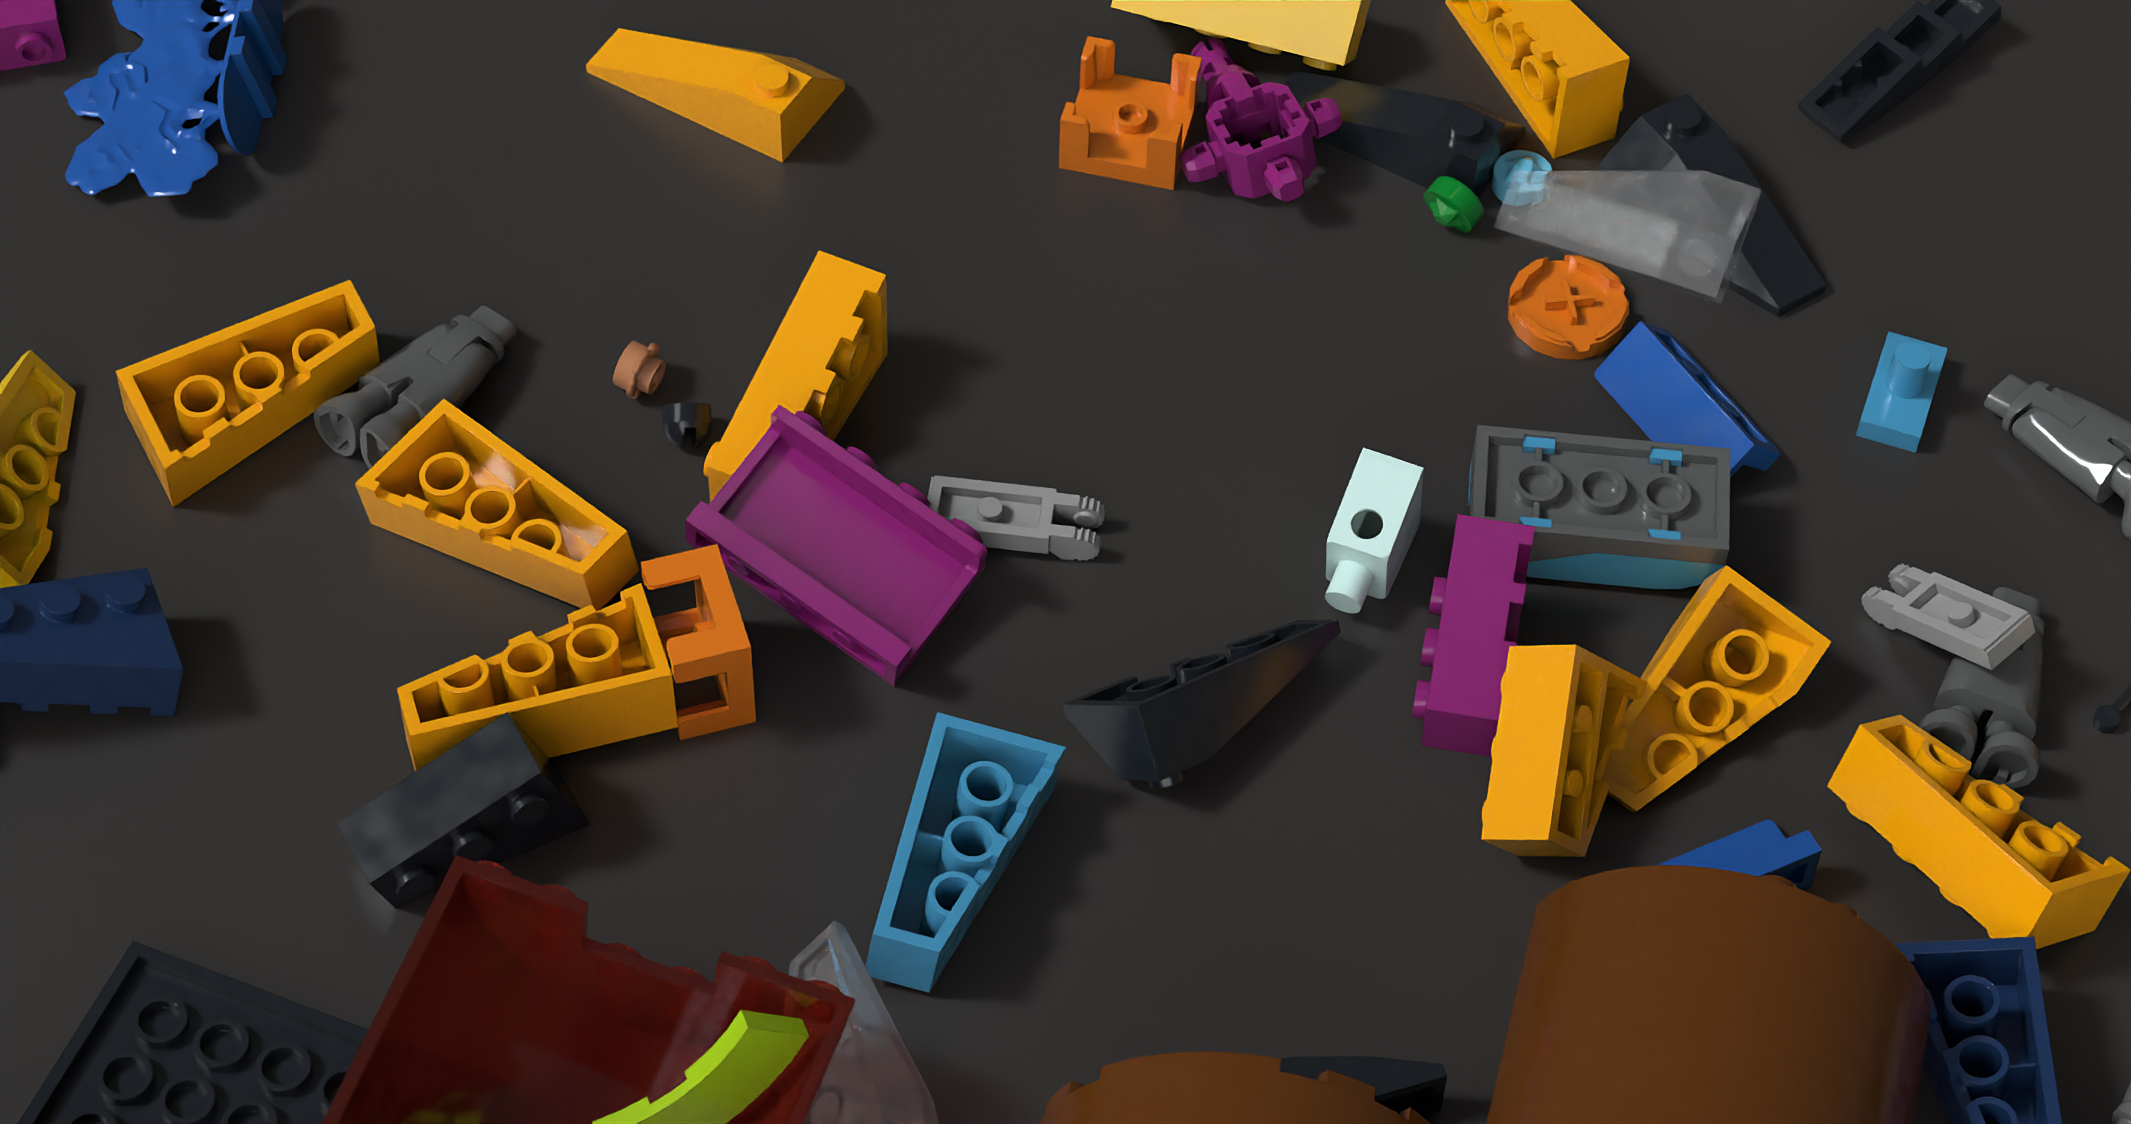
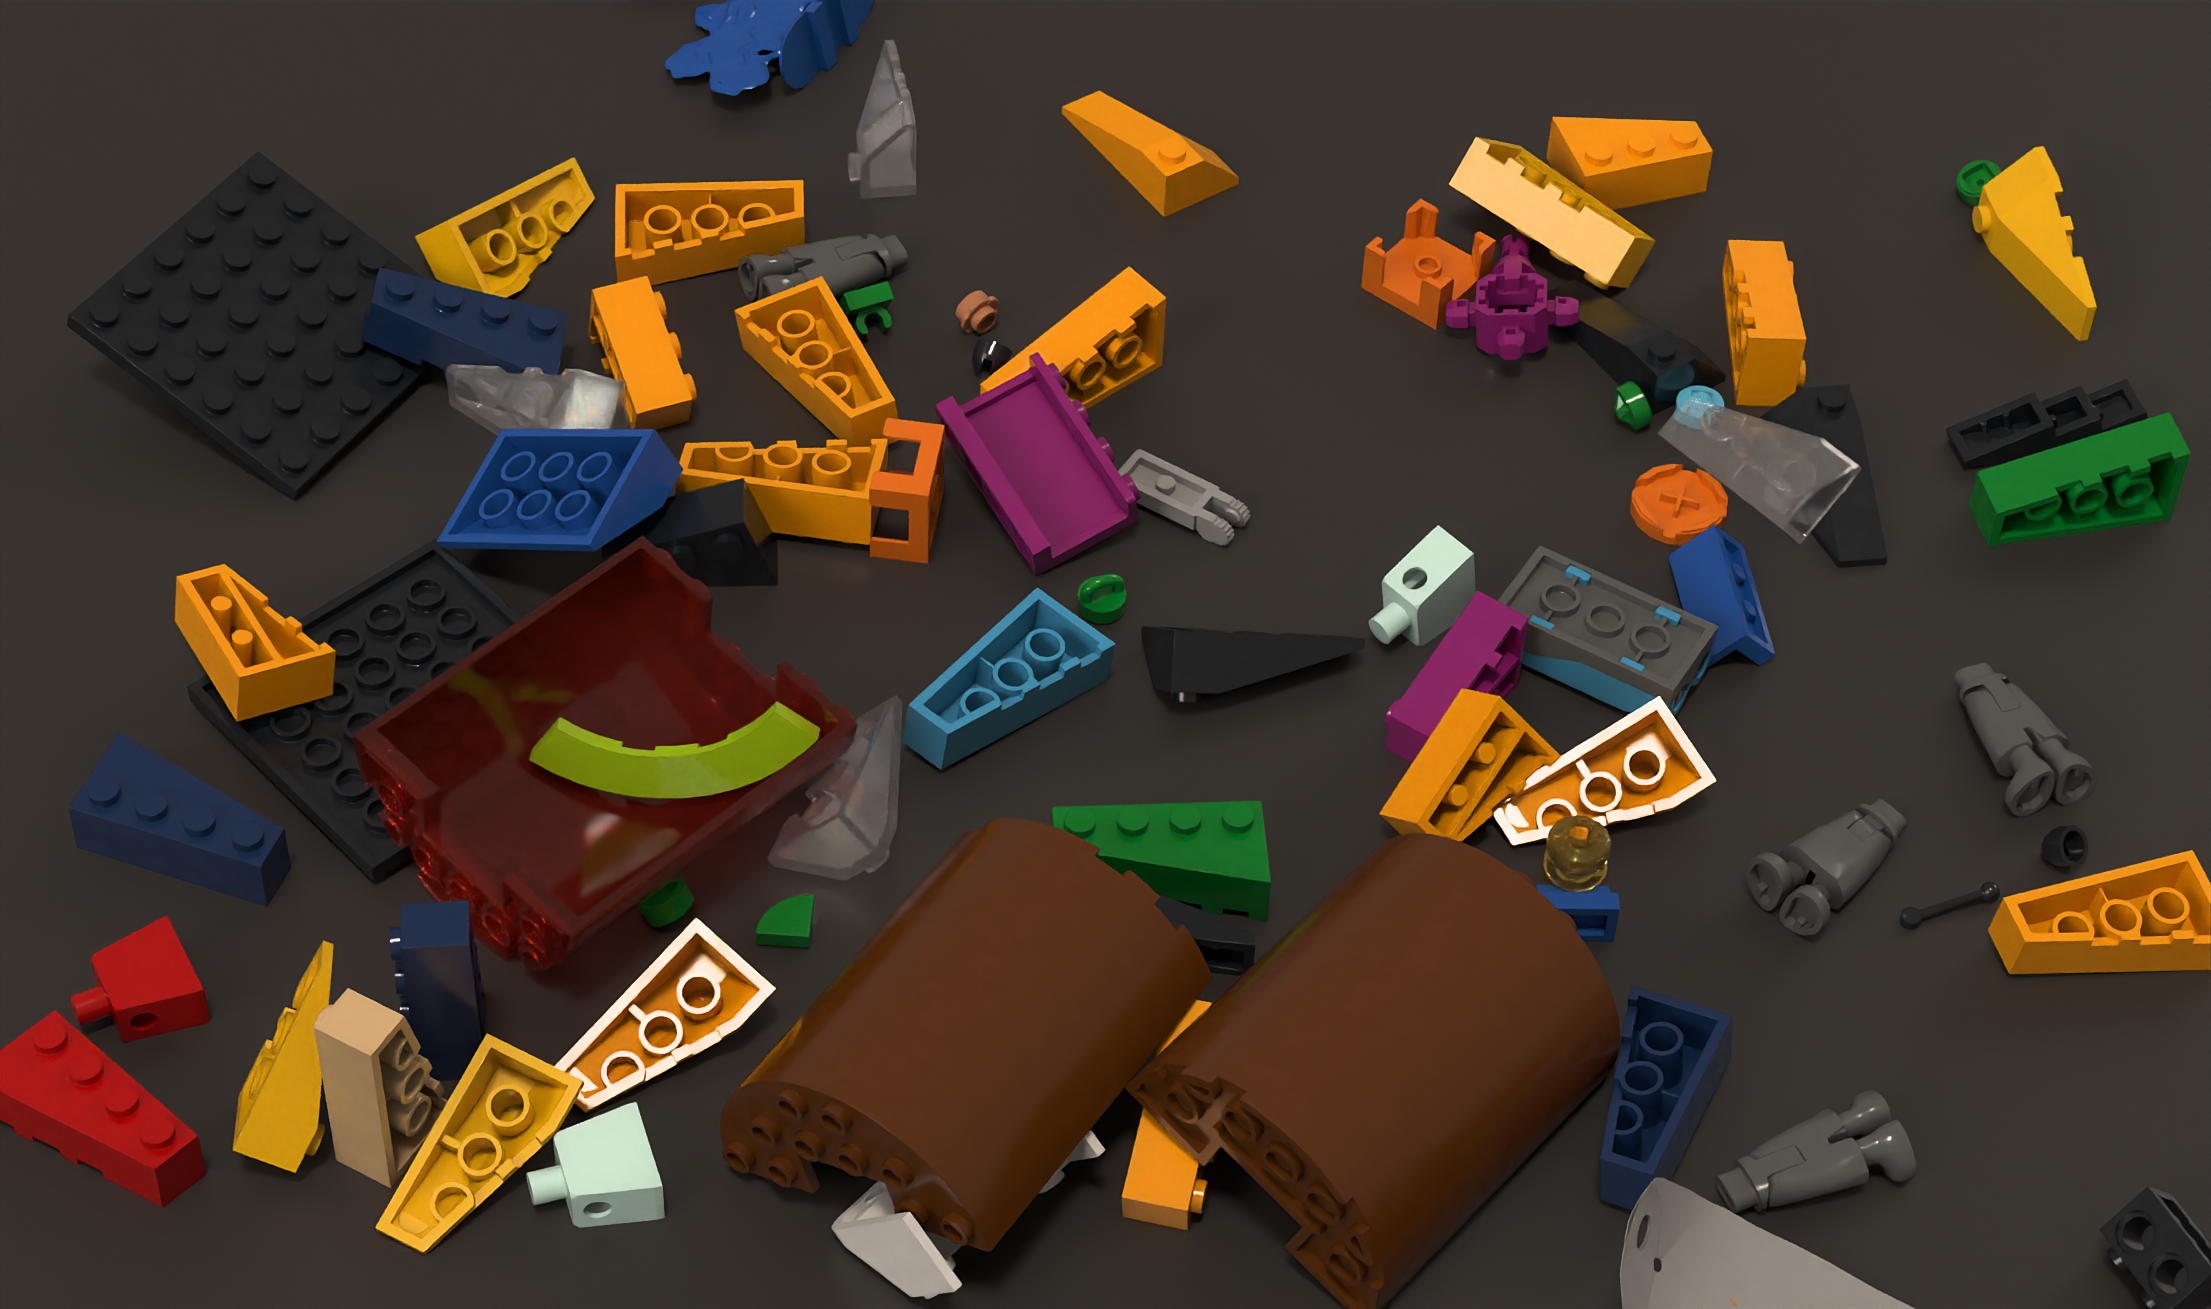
camera: 25 degrees right, 5 degrees down
(215, 719) = (536, 399): none -> clear wedge
(263, 587) = (641, 353): none -> light orange wedge
(278, 821) = (562, 489): none -> blue slope
(407, 171) = (886, 134): none -> clear wedge
(505, 409) = (868, 303): none -> green tile
(994, 687) = (1102, 598): none -> green tile
(1277, 989) = (1183, 850): none -> green wedge
(1727, 796) = (1577, 853): none -> clear yellow piece
(1901, 392) = (1897, 648): dark azure tile -> none
(1949, 615) = (1821, 799): light grey hinge -> none
(1973, 836) = (1744, 947): light orange wedge -> none
(1990, 118) = (2084, 485): none -> green wedge

